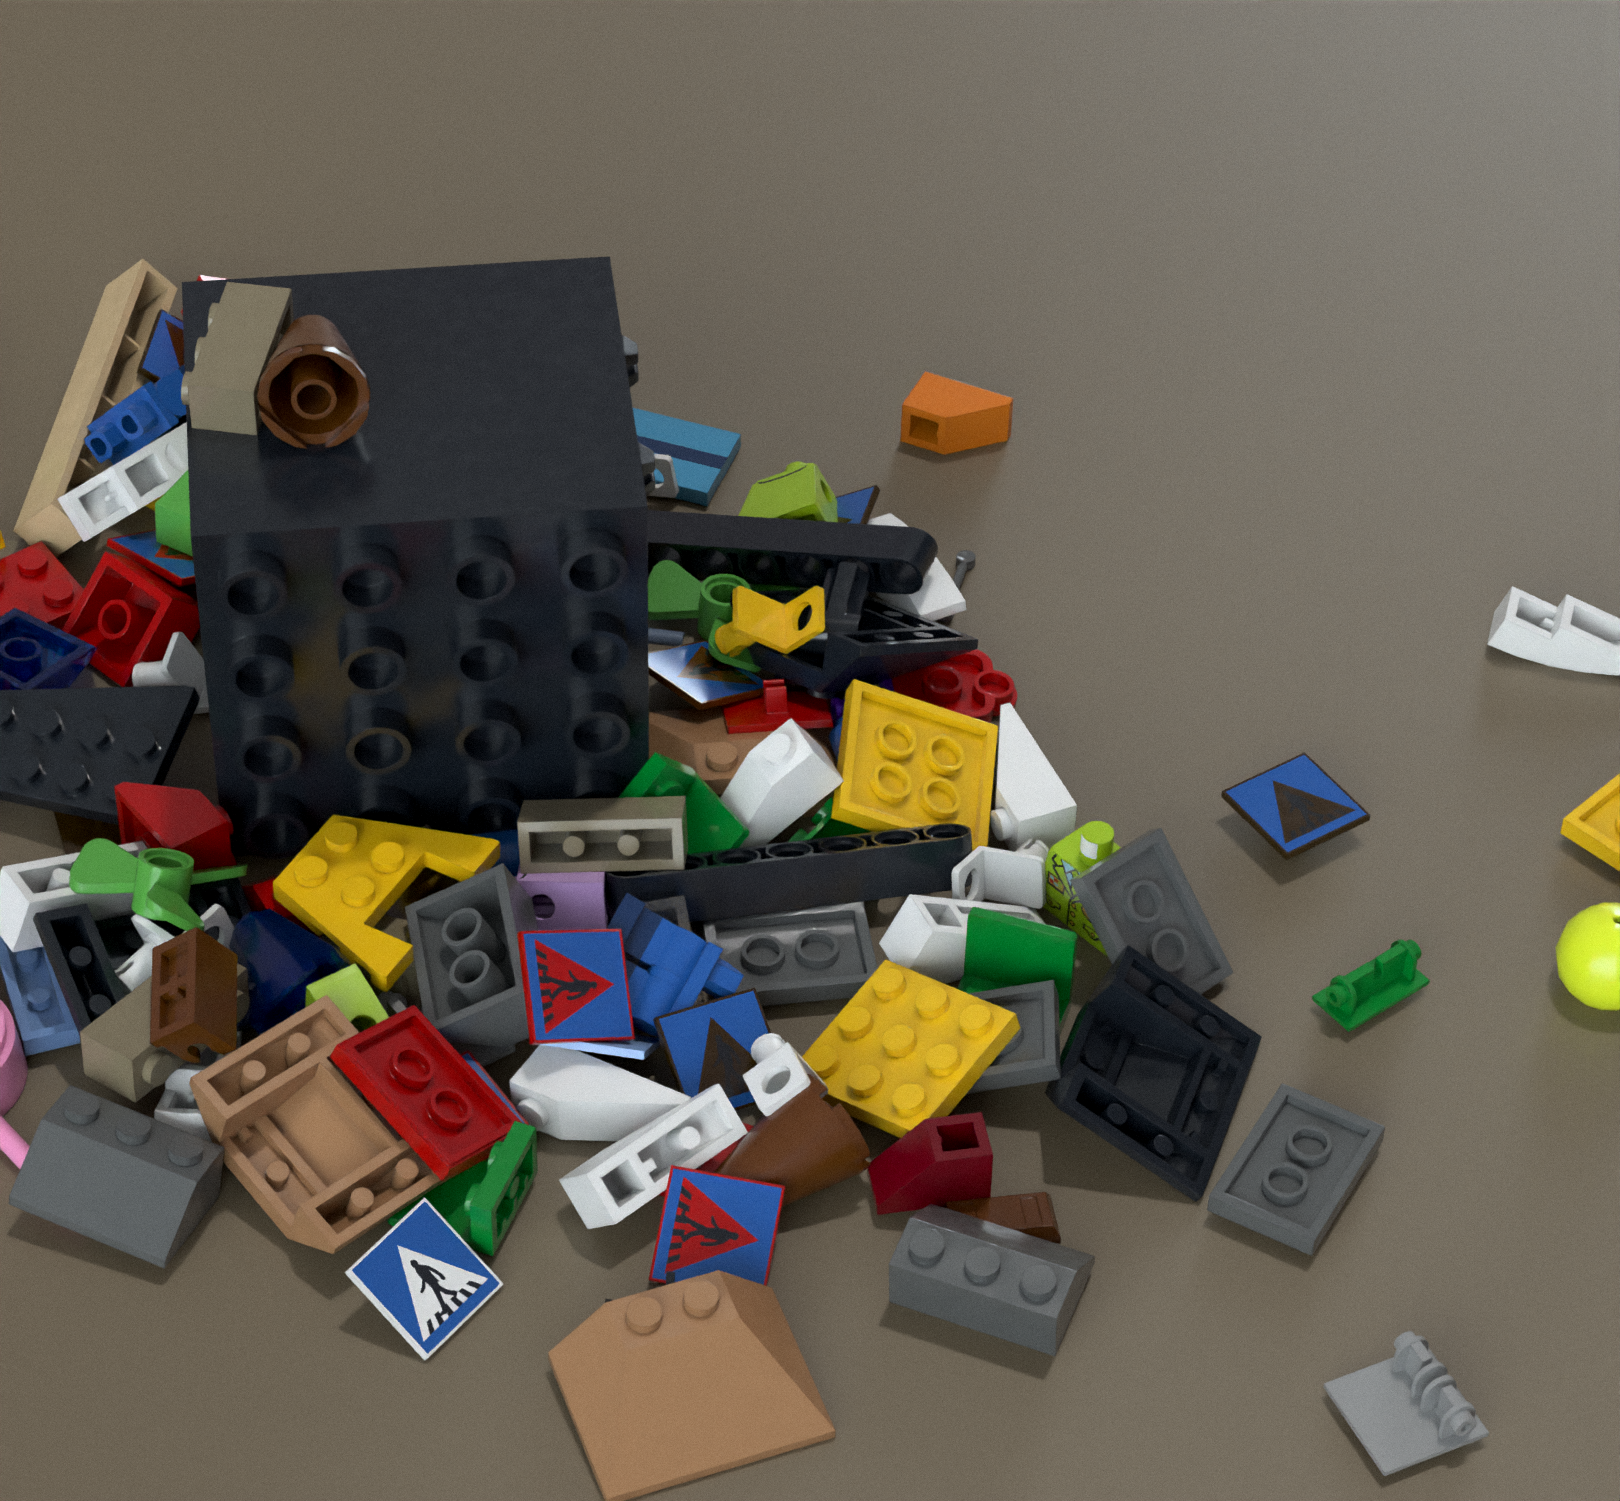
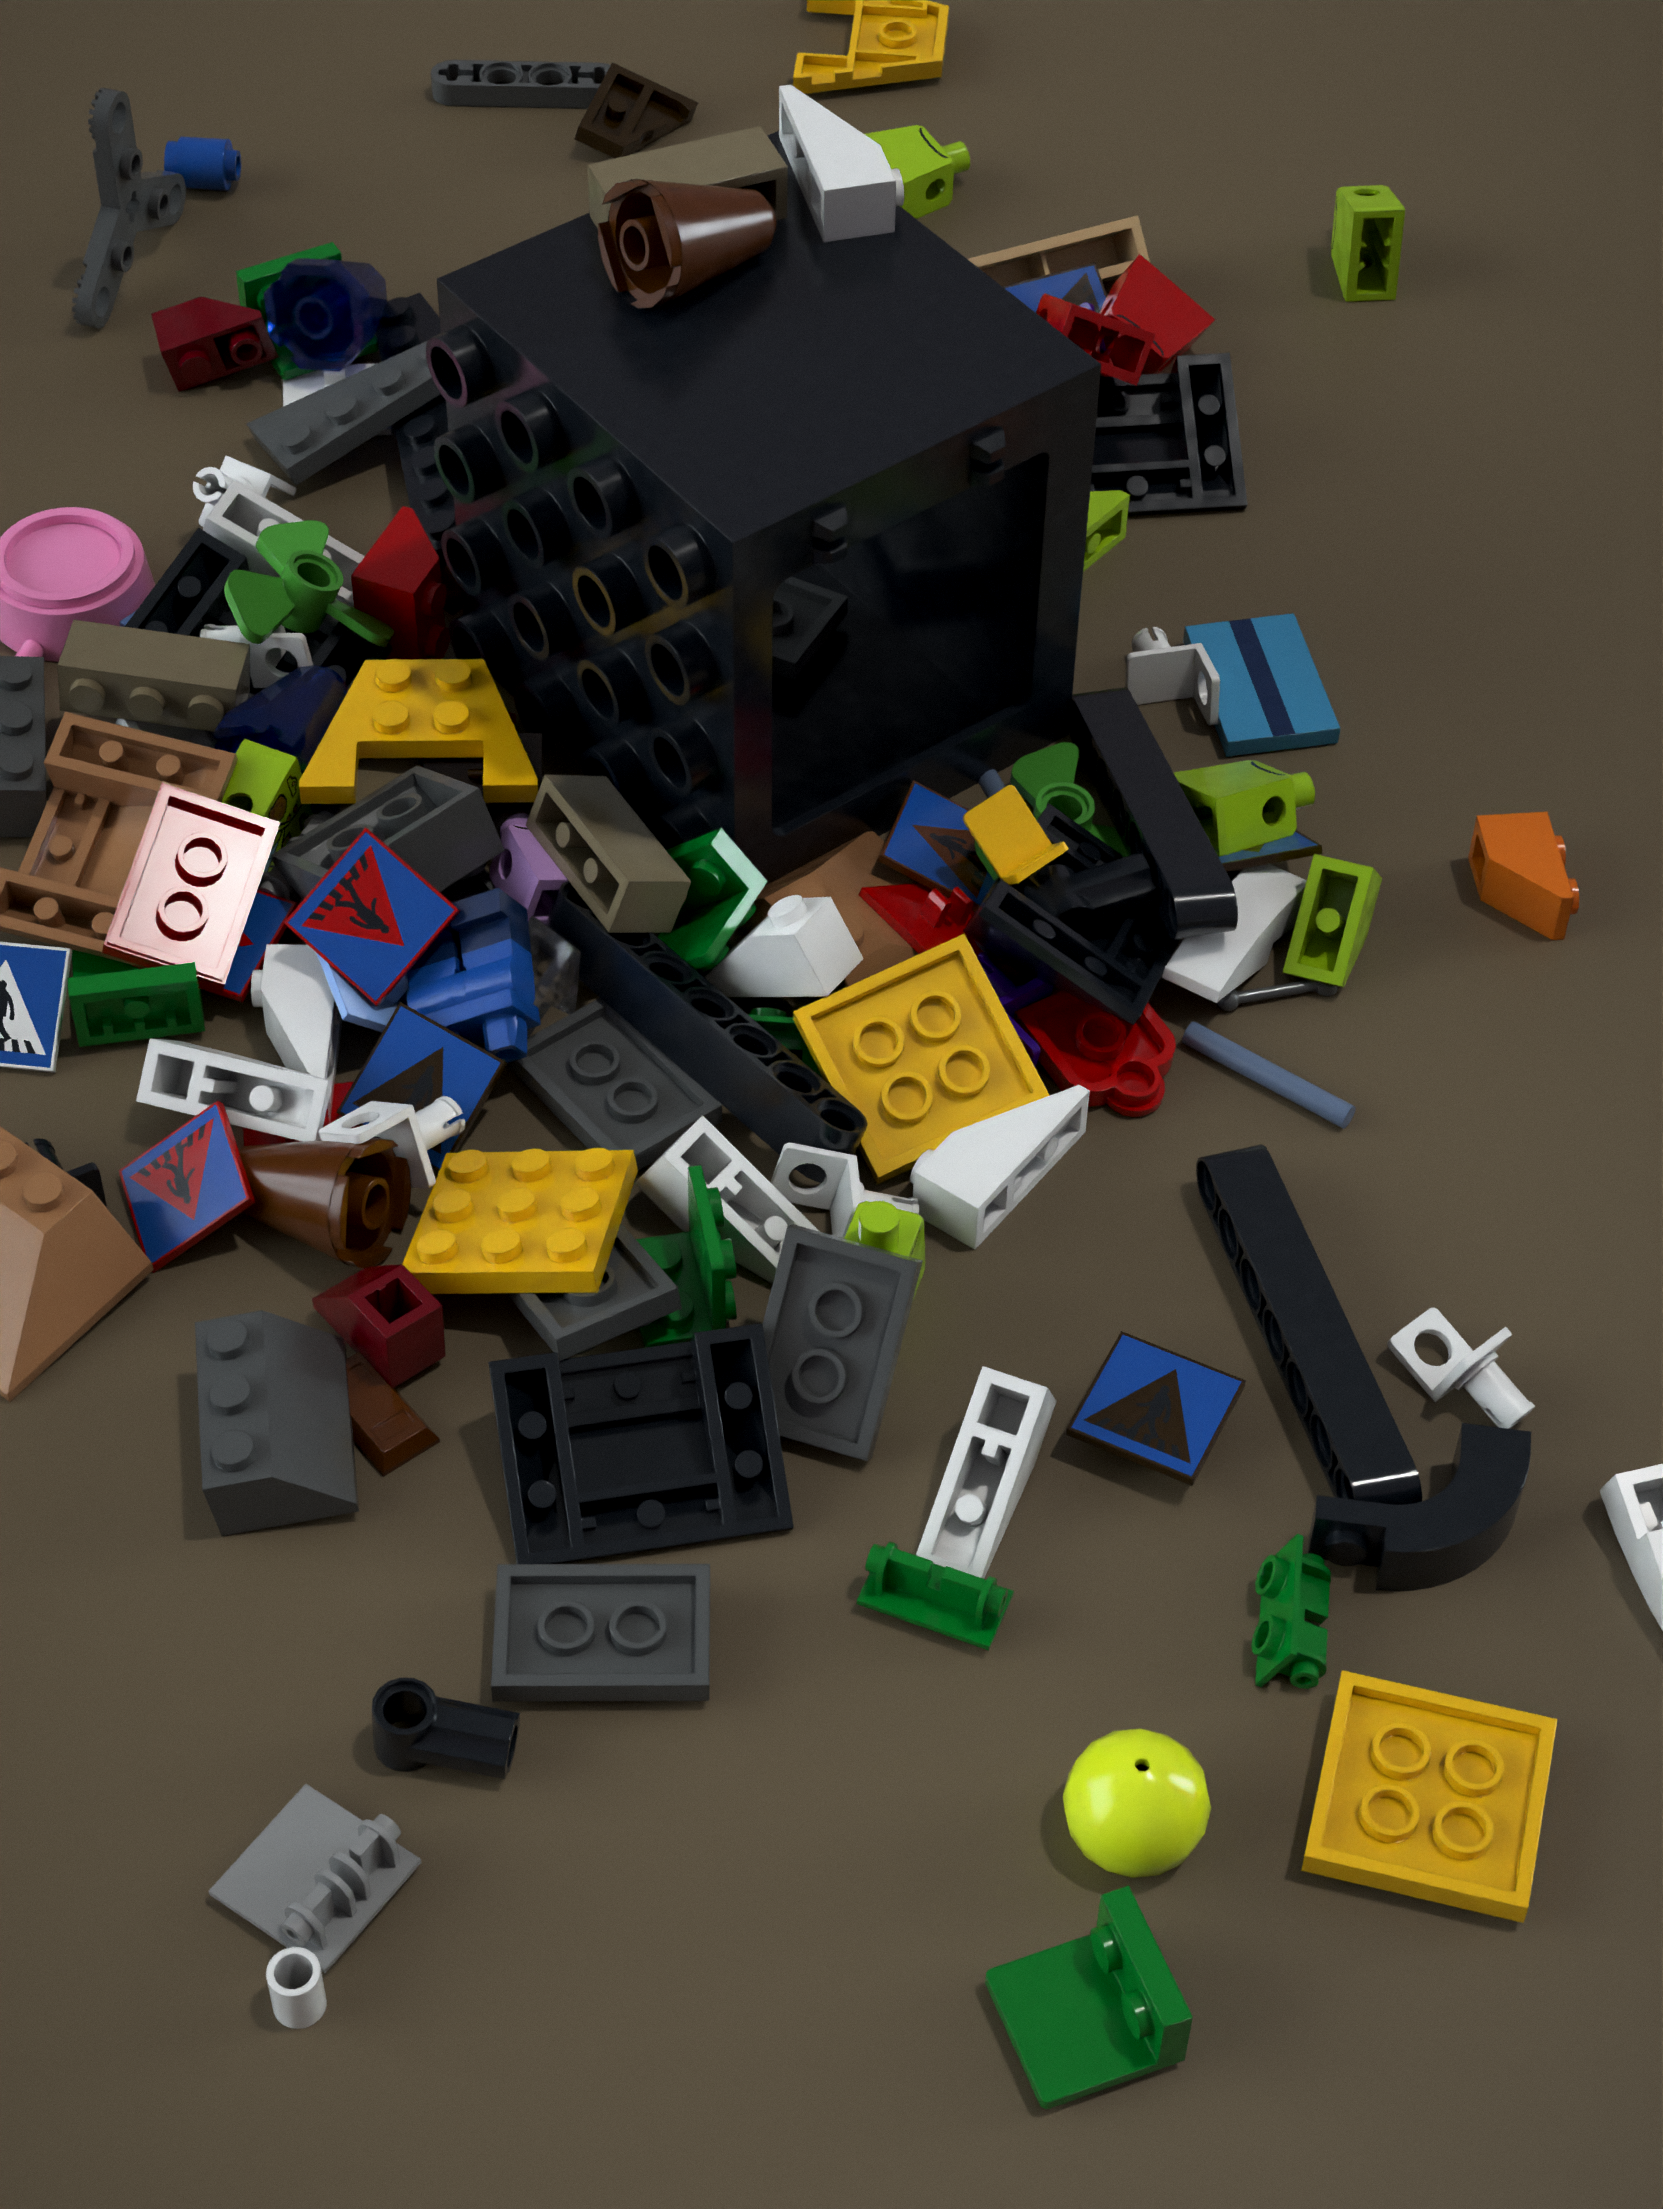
camera: 60 degrees right, 5 degrees up
(193, 995) = (151, 664): reddish brown hinge -> none
(255, 172) = (1369, 227): none -> lime torso
(320, 271) = (838, 170): none -> white slope
(930, 506) = (1332, 920): none -> lime slope
(1037, 623) = (1268, 1074): none -> sand blue bar
(1274, 708) = (1306, 1329): none -> black beam
(1292, 909) = (987, 1471): none -> white slope
(1330, 1287) = (447, 1734): none -> black piece
(1362, 648) = (1464, 1368): none -> white bracket
(1479, 707) = (1438, 1537): none -> black arch
(1496, 827) = (1290, 1590): none -> green hinge
(1501, 1448) = (293, 1969): none -> white hinge

